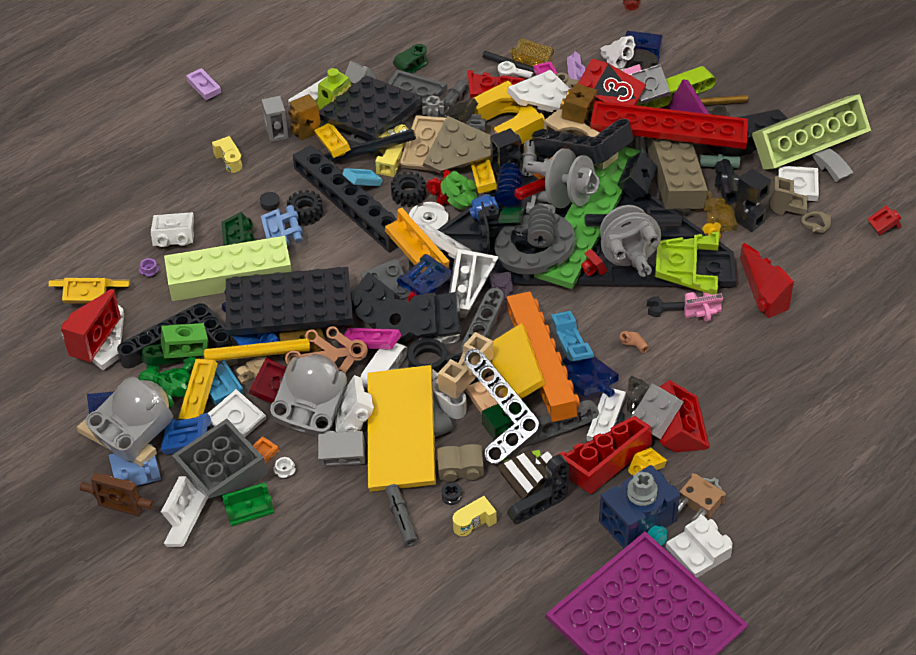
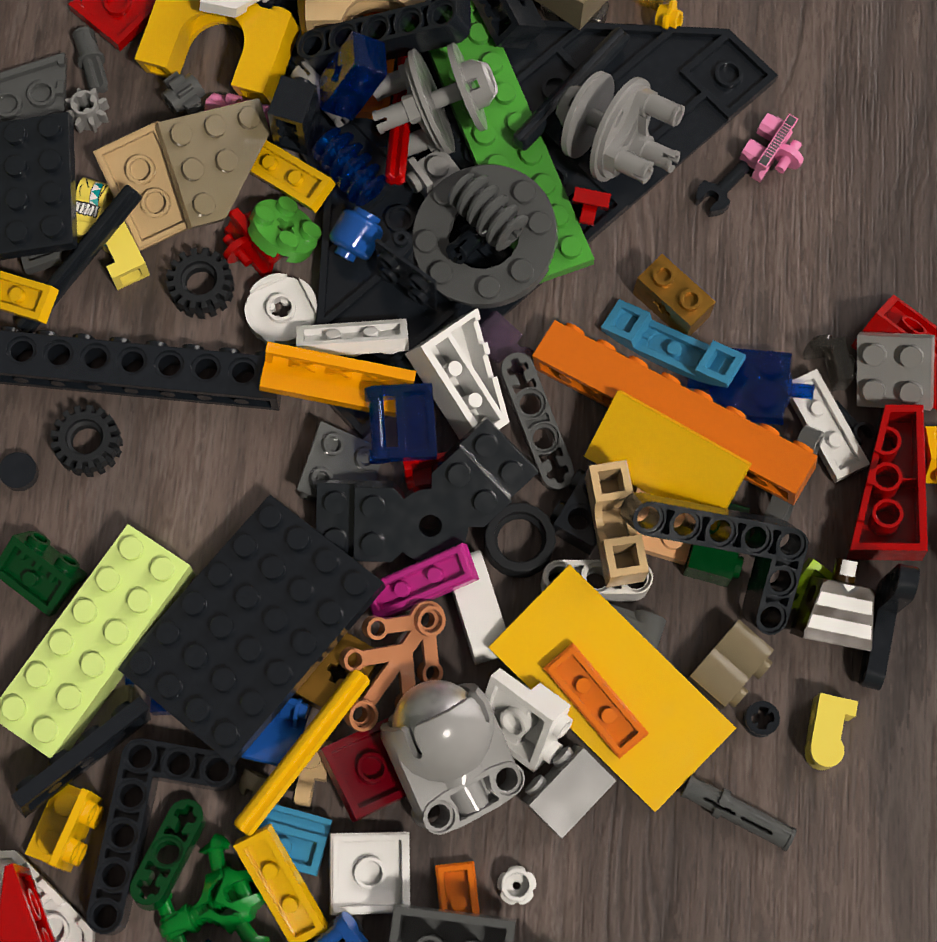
camera: 50 degrees left, 25 degrees up
(147, 313) = (64, 828): none -> yellow bracket
(179, 295) = (70, 764): none -> black plate
(183, 340) = (176, 851): bright green brick -> none
(275, 222) = (90, 517): medium blue plate -> none
(362, 177) = (120, 321): medium azure tile -> none
(387, 423) = (595, 700): none -> orange tile
(462, 110) = (140, 95): clear smoke plate -> none
(512, 215) = (410, 214): dark green slope -> none
(541, 148) = (352, 76): none -> clear blue brick
(593, 323) = (673, 296): none -> pearl gold brick
(634, 339) = (741, 274): nougat arm -> none
(678, 259) = (707, 114): lime wing -> none
(769, 284) = (824, 51): red wedge -> none

